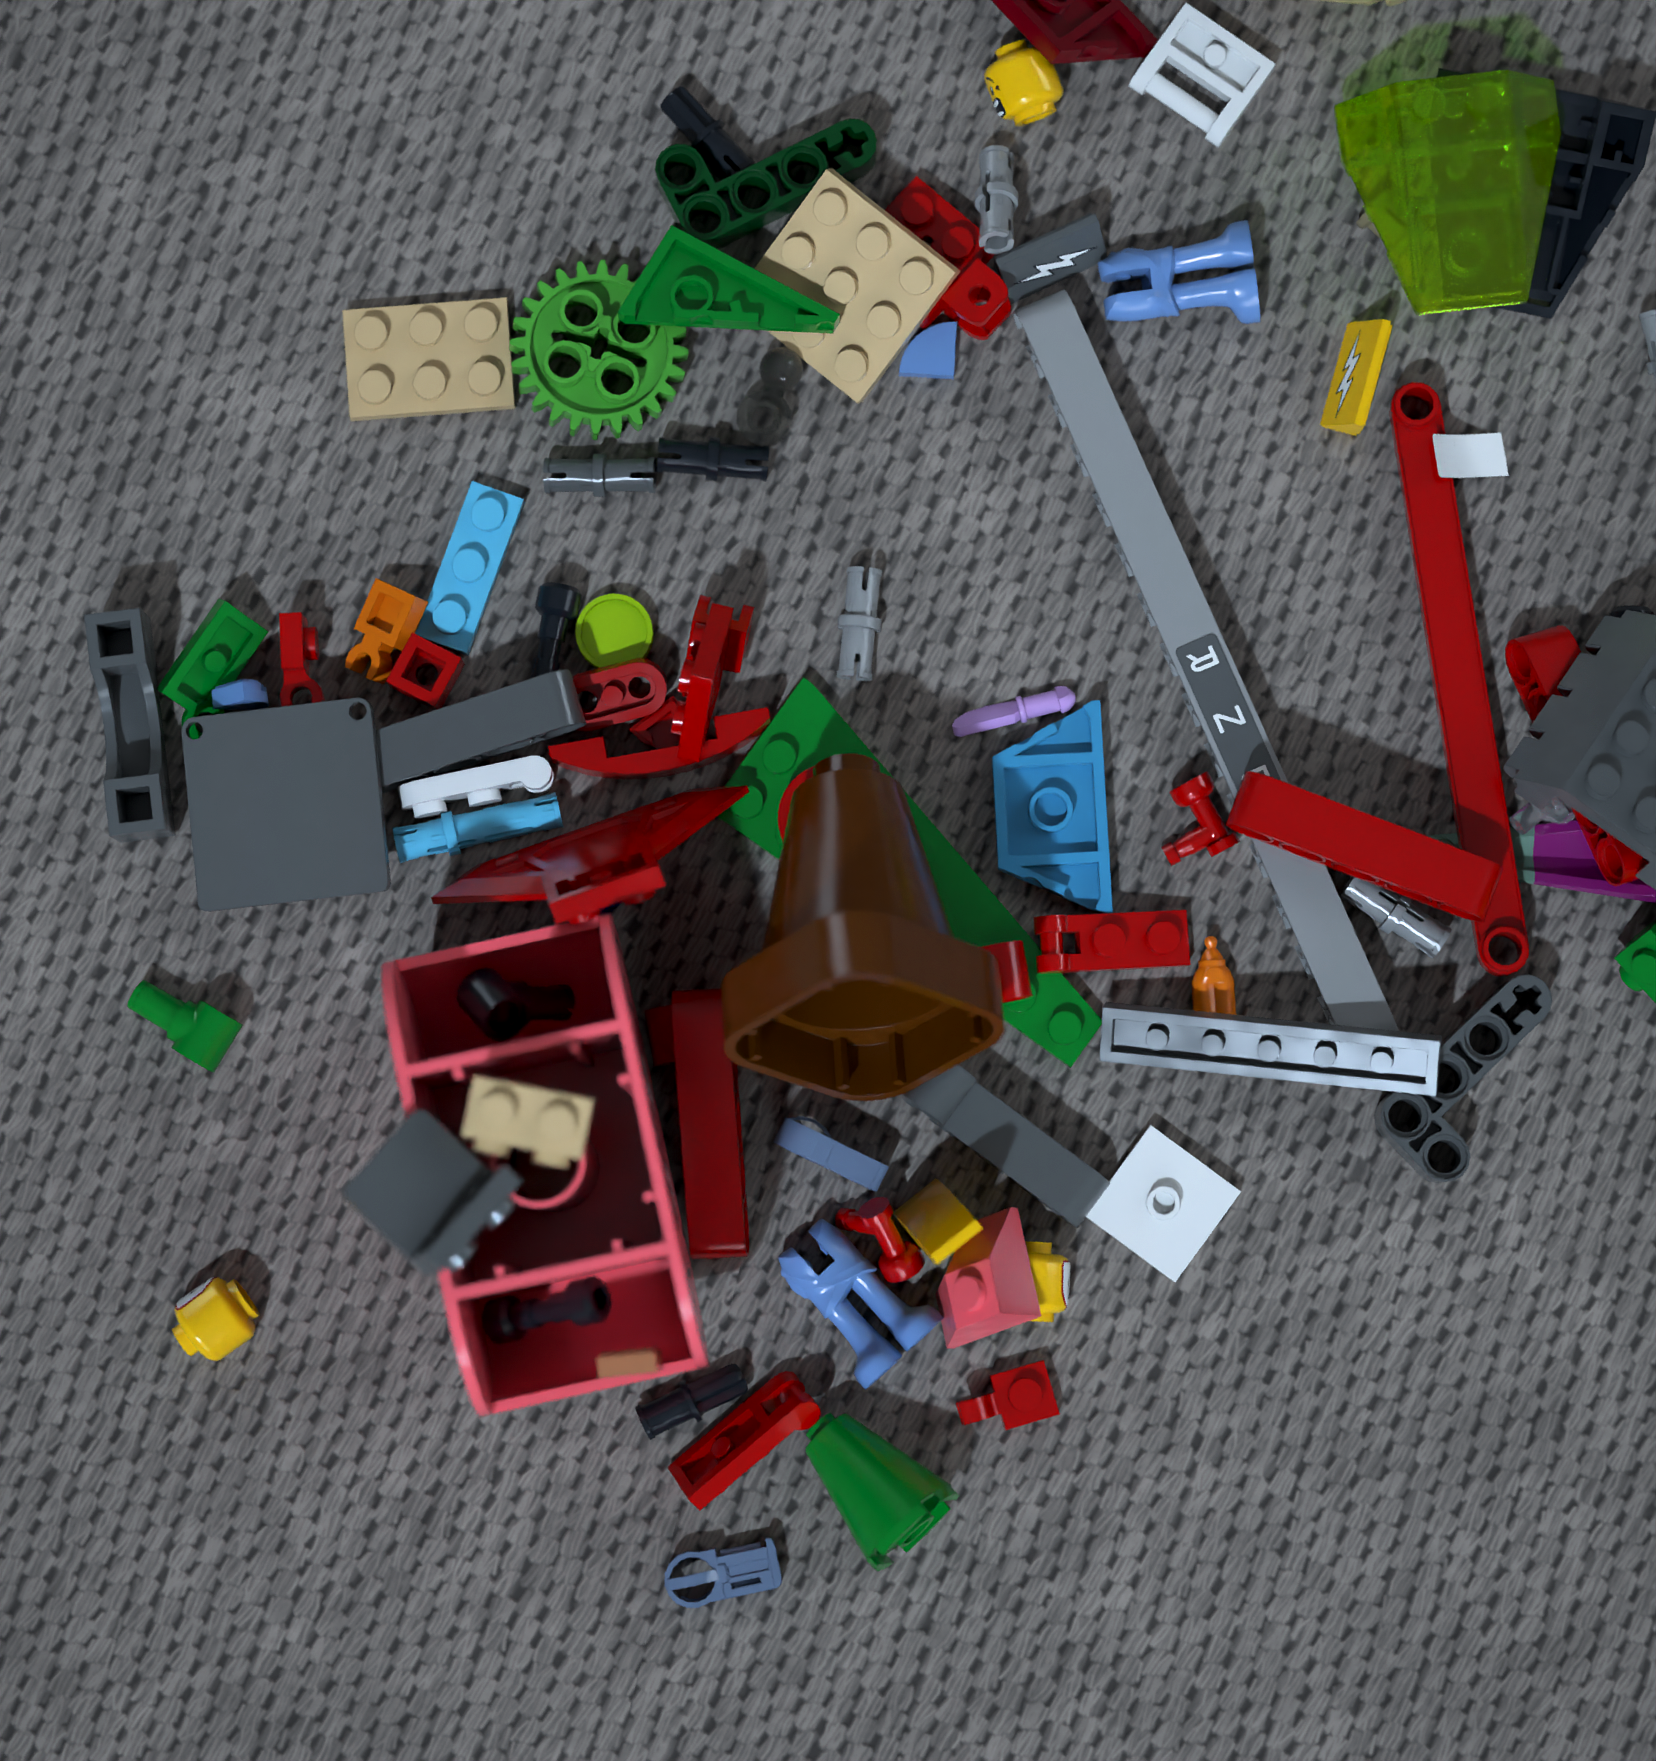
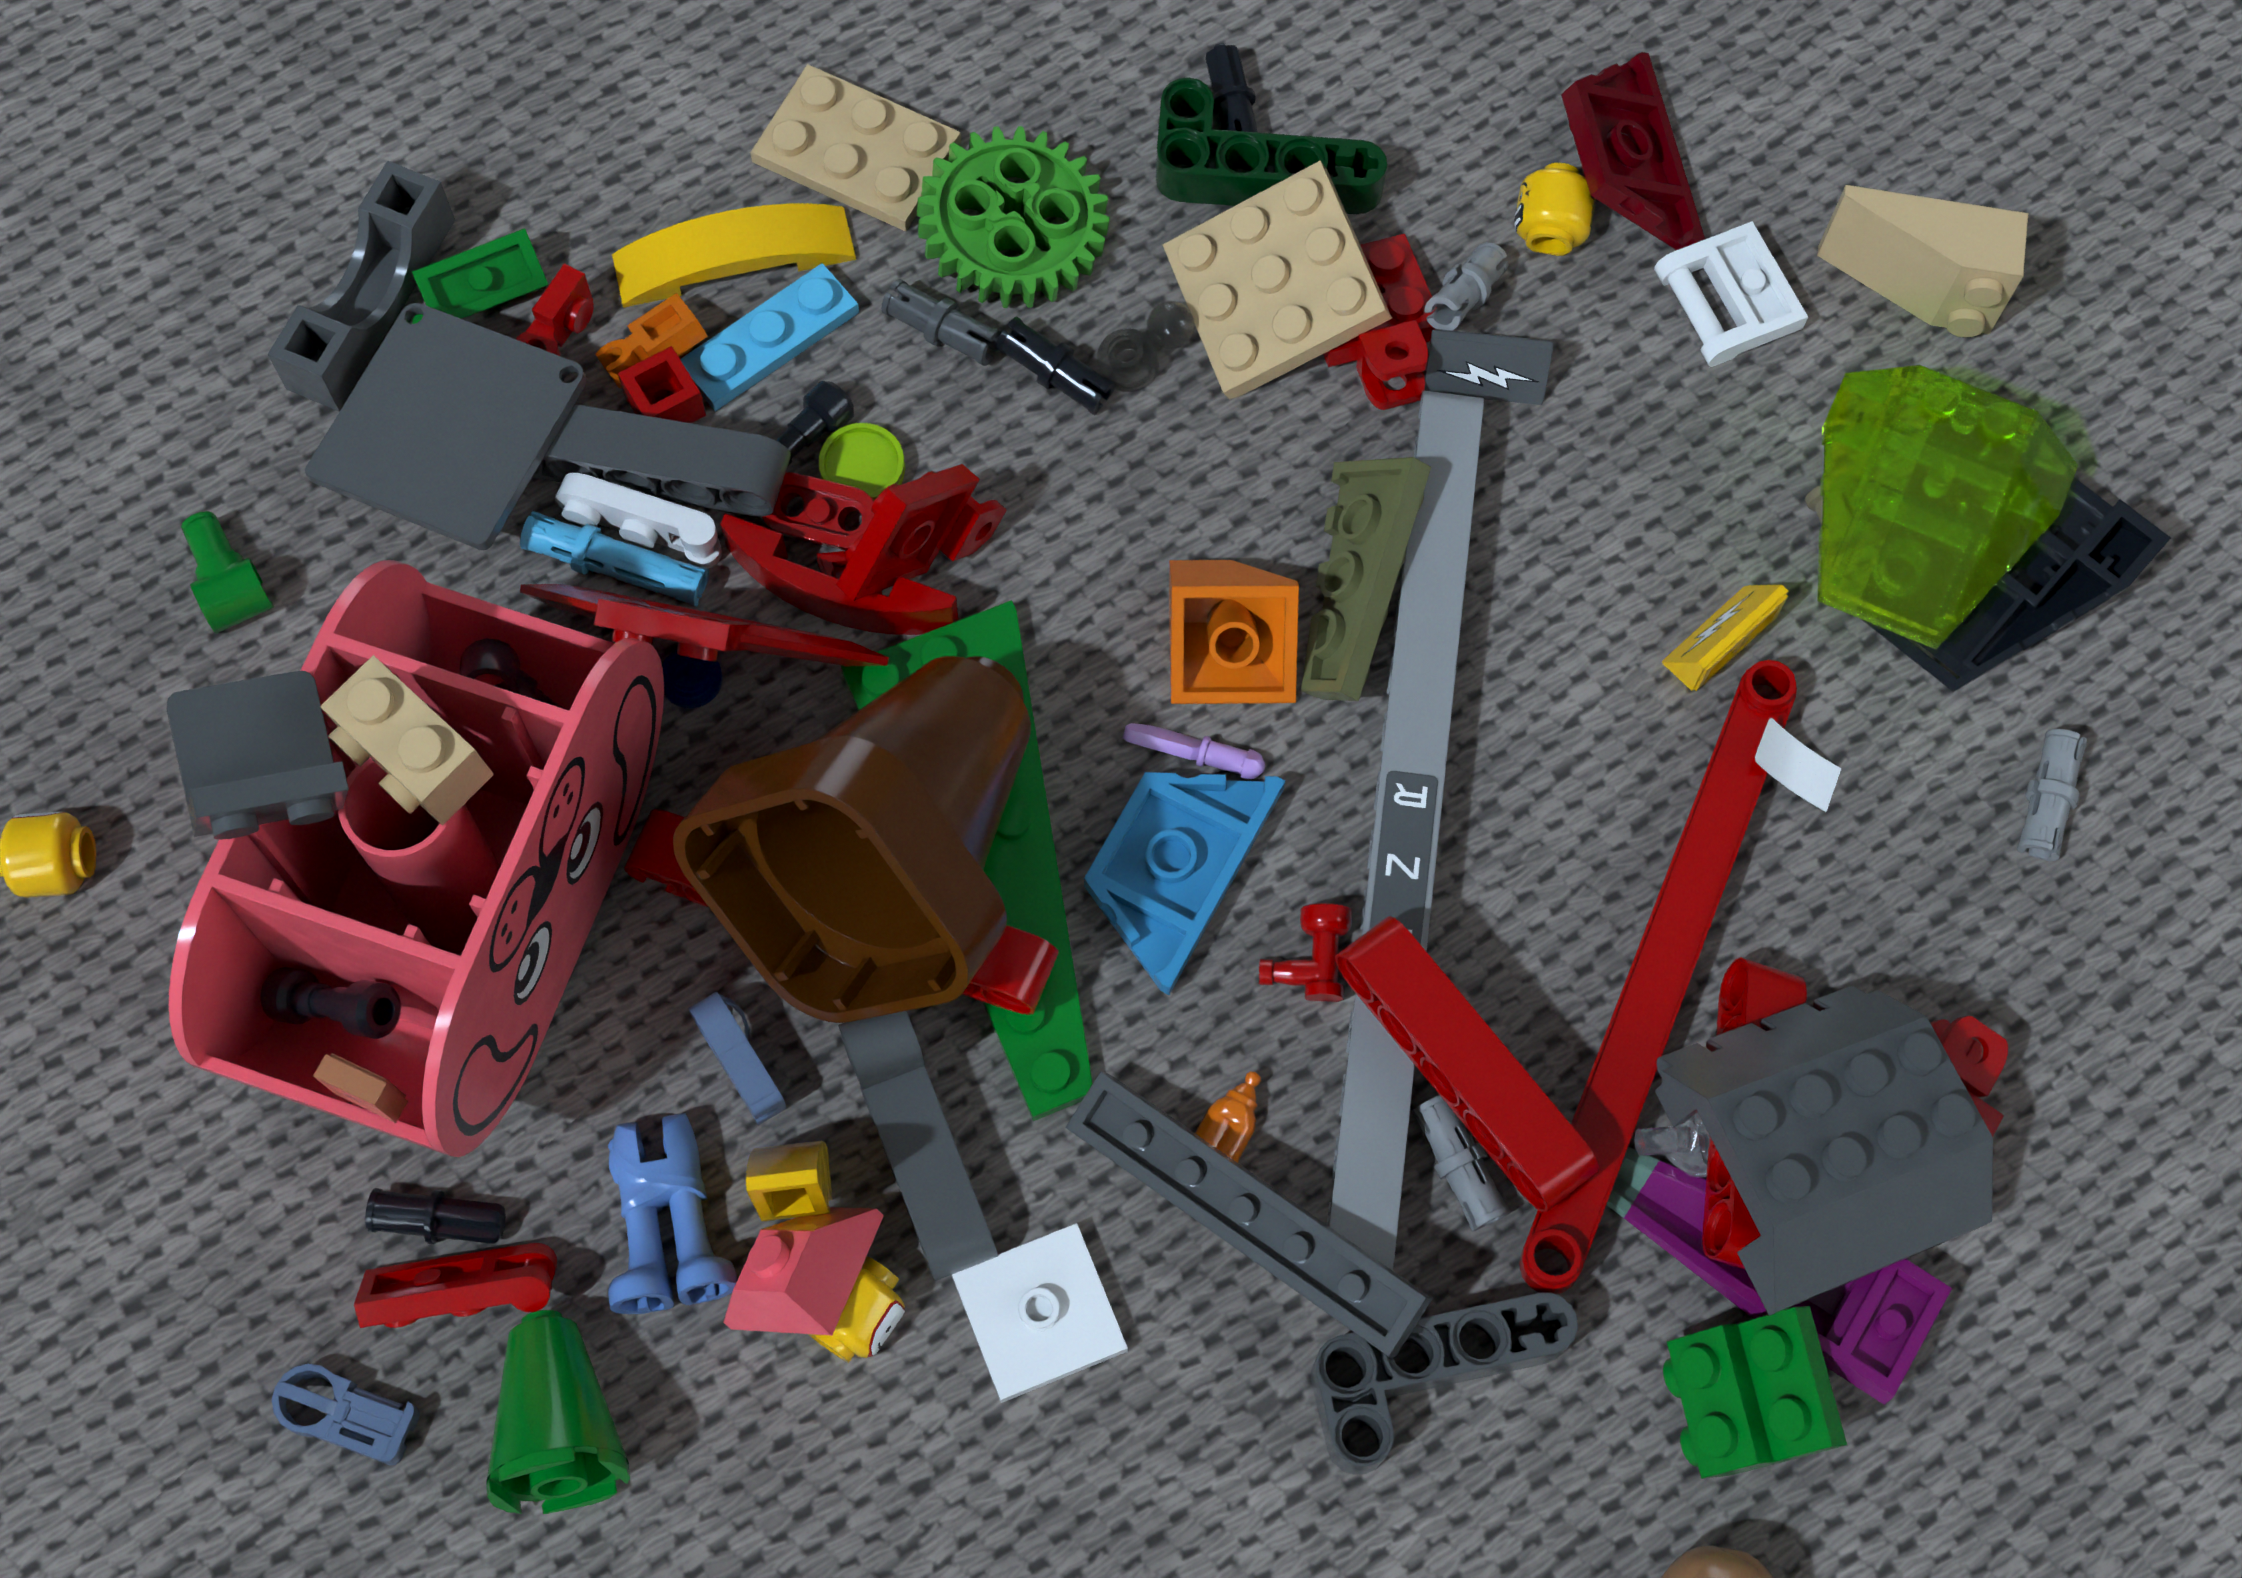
camera: 30 degrees right, 15 degrees down
(240, 695) = (482, 311): medium blue tile -> none
(391, 512) = (731, 245): none -> yellow slope
(705, 288) = (1145, 208): green wing -> none
(709, 1128) = (622, 964): red beam -> none
(859, 623) = (1097, 584): light grey pin -> none
(899, 1258) = (732, 1142): red piece -> none
(931, 353) = (1321, 390): medium blue tile -> none
(986, 604) = (1231, 633): none -> orange slope
(1018, 1395) = (763, 1421): red plate -> none
(1050, 468) = (1367, 550): none -> olive wing
(1113, 941) = (1152, 1017): red plate -> none
(1157, 270) = (1565, 442): medium blue piece -> none

